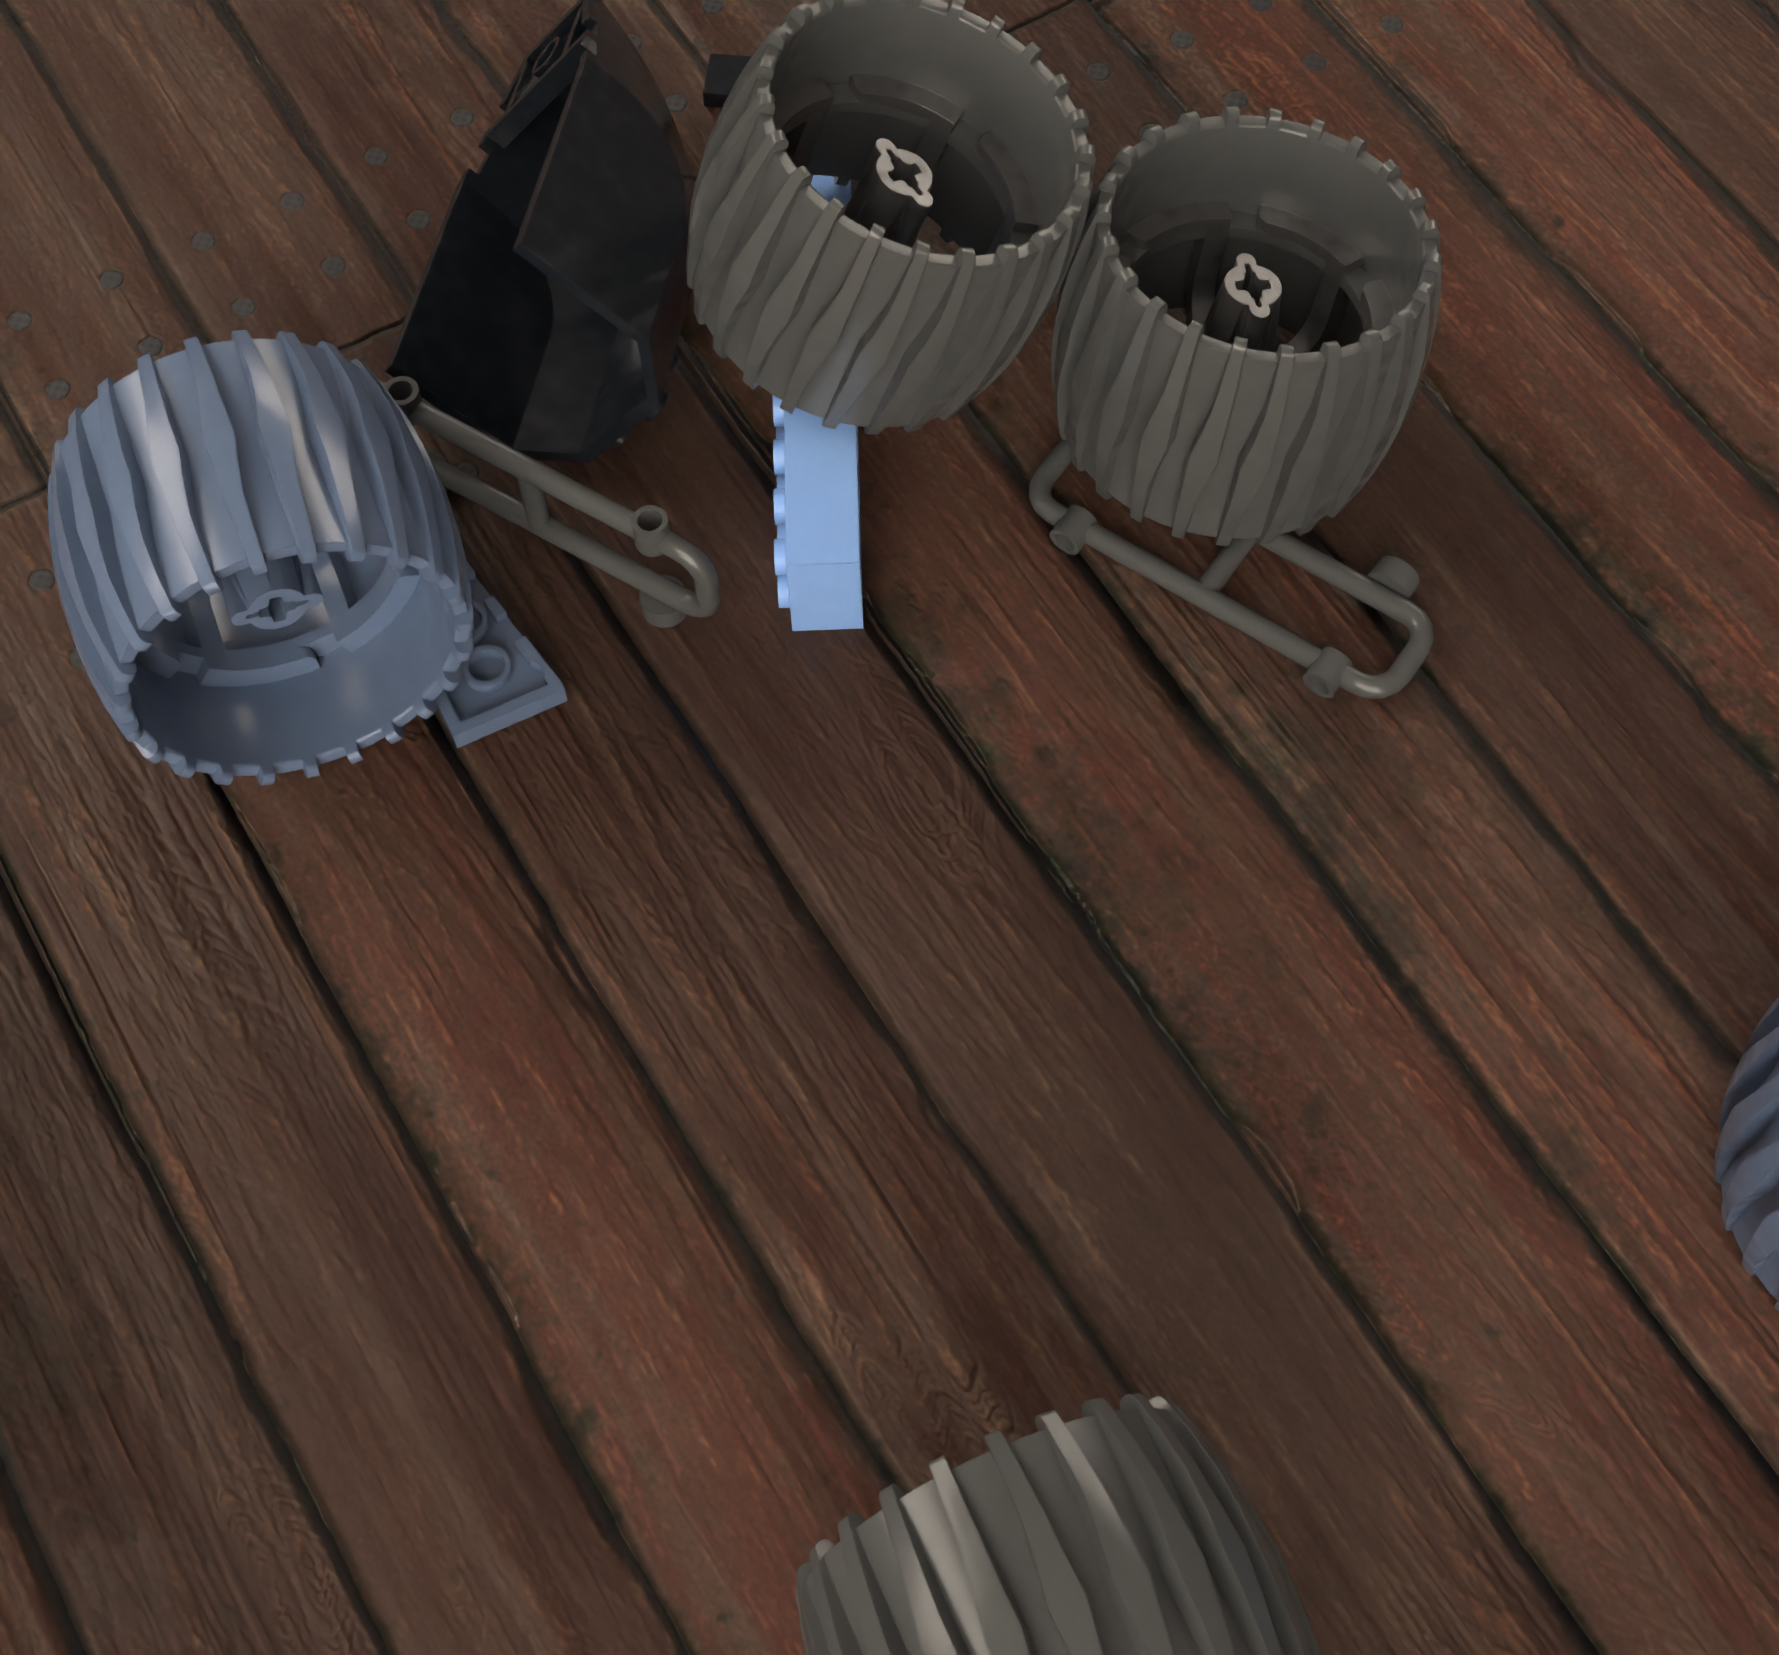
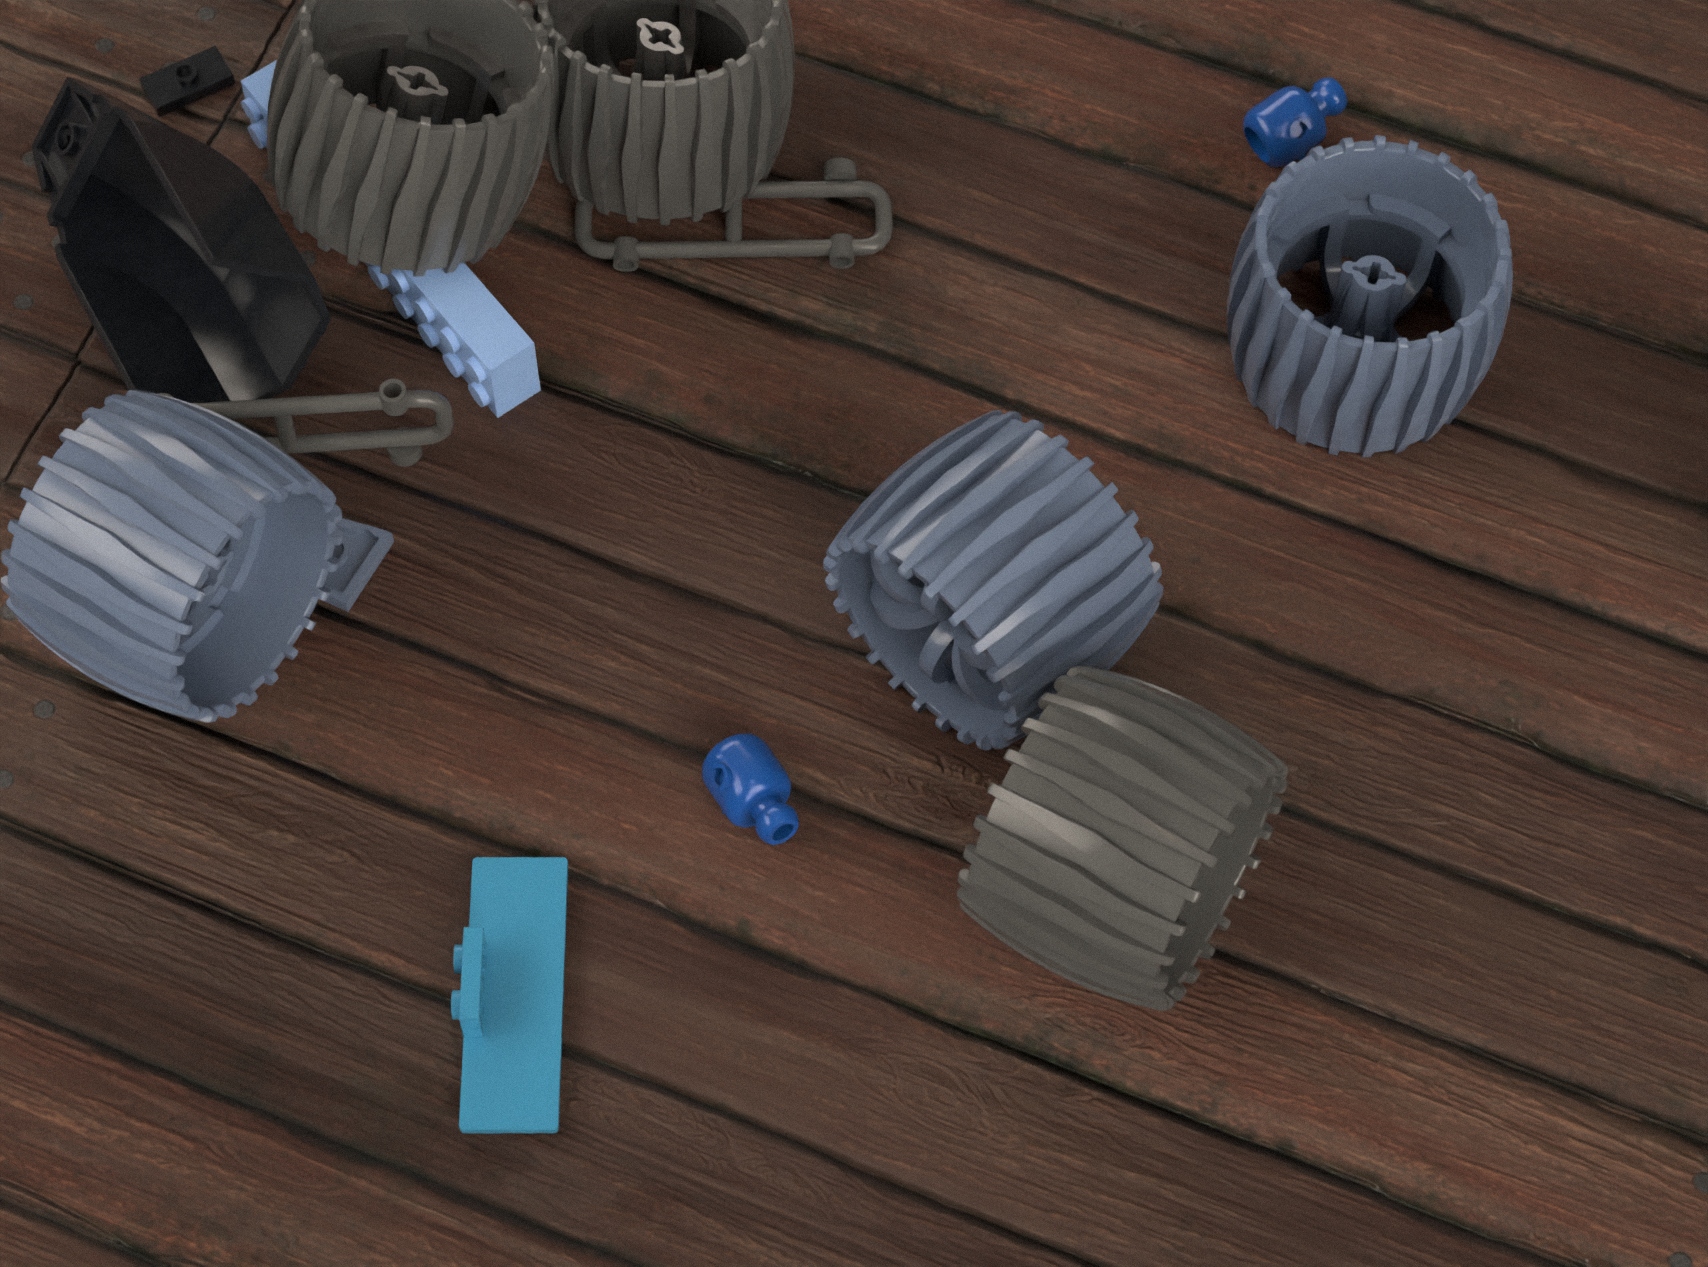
camera: 40 degrees left, 0 degrees up
(258, 1317) = (512, 995): none -> dark azure bracket
(715, 1255) = (751, 787): none -> blue piece
(1171, 1194) = (992, 575): none -> sand blue wheel

